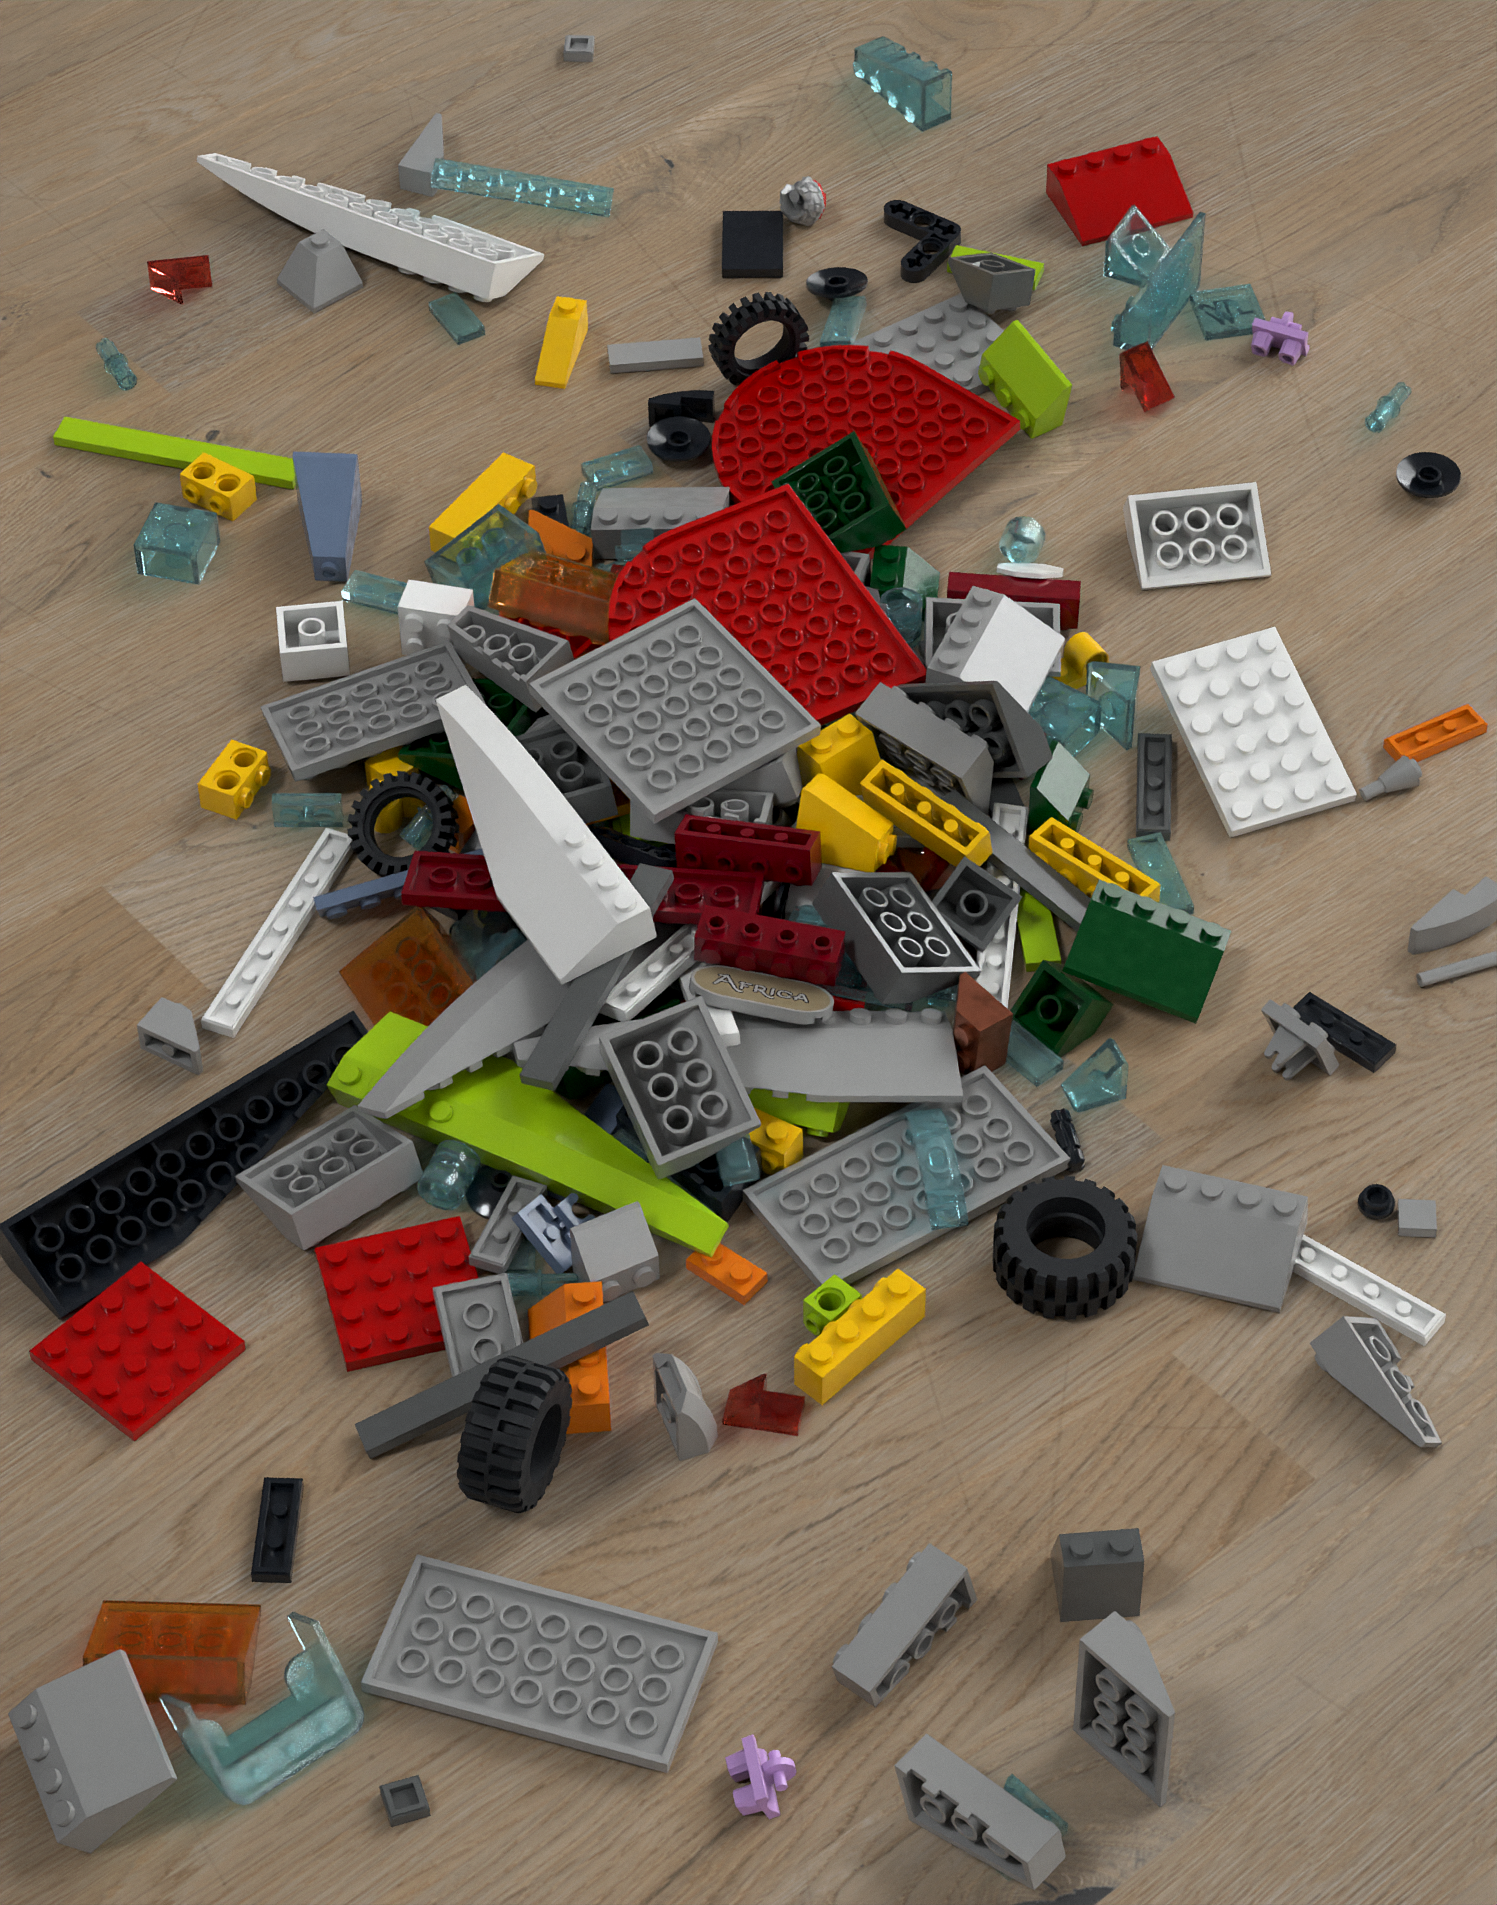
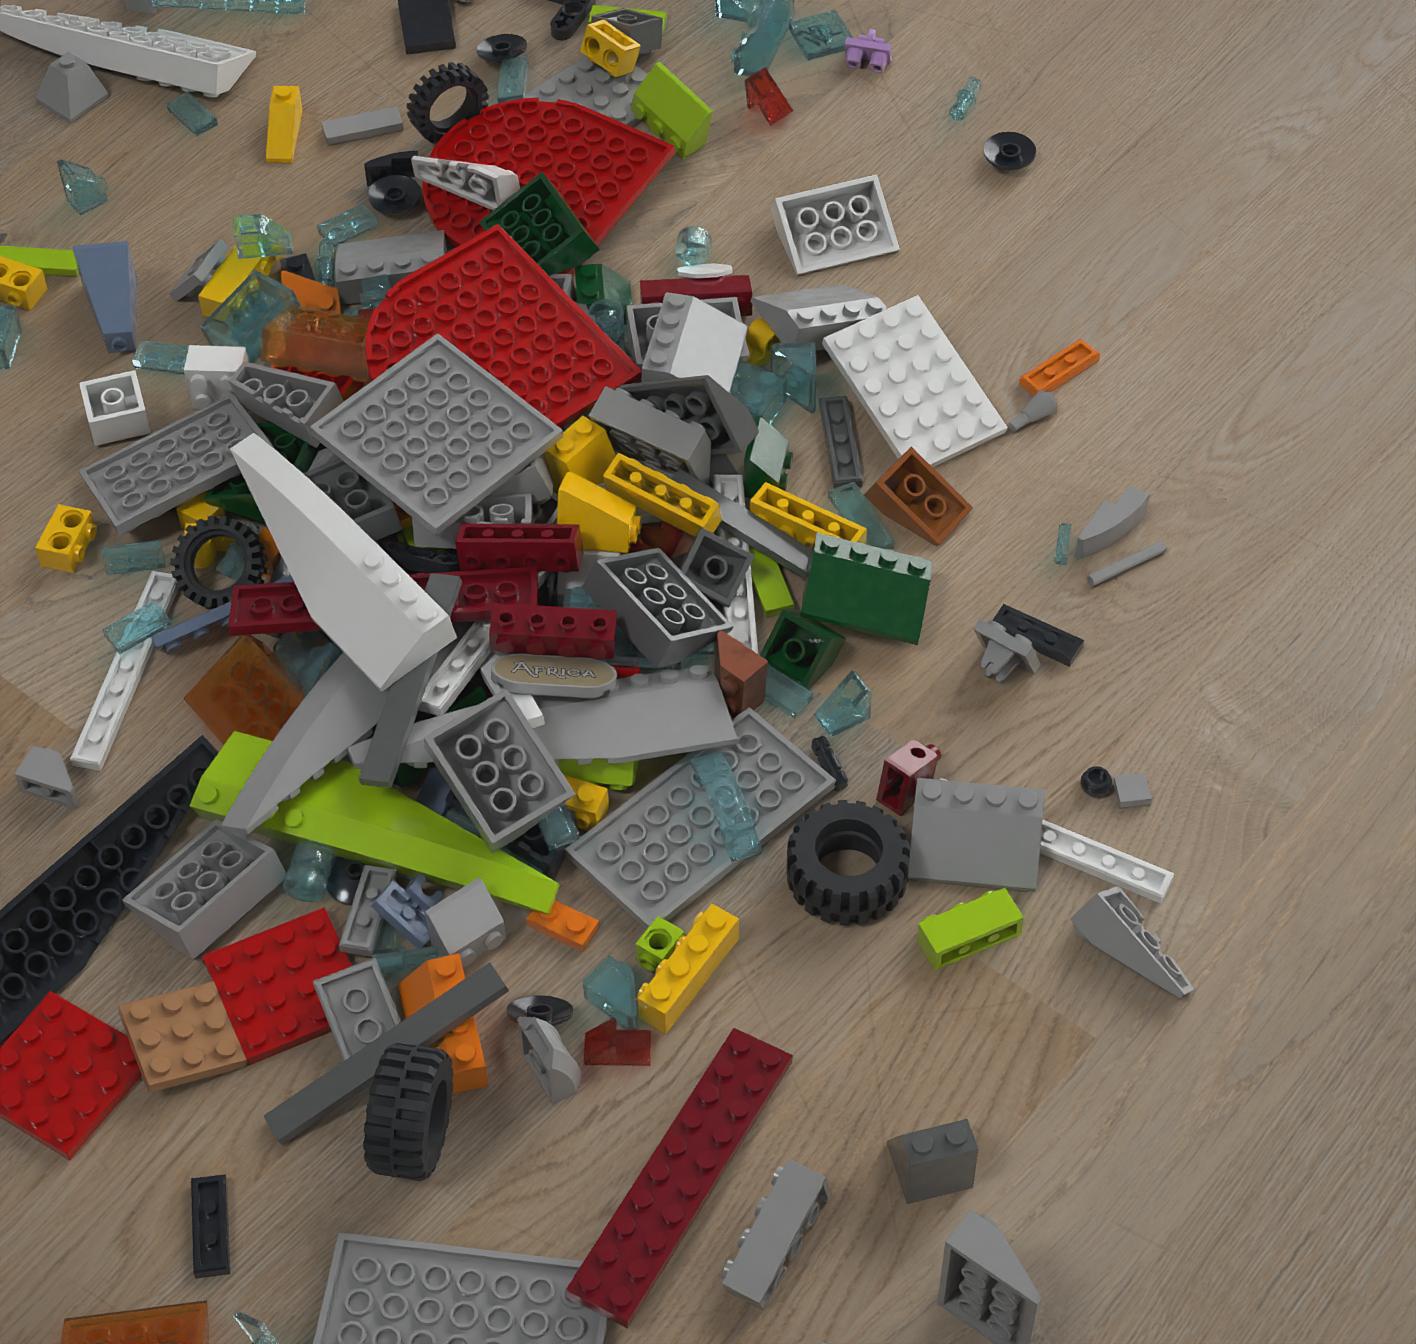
camera: 10 degrees left, 5 degrees up
(278, 1328) = (181, 1036): none -> medium nougat plate
(298, 886) = (136, 627): none -> clear light blue tile
(315, 386) = (82, 186): none -> clear light blue slope
(435, 499) = (198, 271): none -> light grey plate
(512, 467) = (260, 237): none -> clear light blue slope
(696, 1358) = (547, 1008): none -> black dish
(769, 1348) = (613, 991): none -> clear light blue slope
(773, 434) = (473, 181): none -> white wedge
(807, 1552) = (678, 1178): none -> dark red plate
(964, 298) = (610, 48): none -> yellow brick
(1144, 1158) = (901, 772): none -> dark red torso
(1150, 632) = (815, 312): none -> light grey slope
(1192, 1339) = (969, 928): none -> lime brick
(1232, 860) = (918, 498): none -> dark orange slope
(1394, 933) = (1062, 544): none -> clear light blue tile

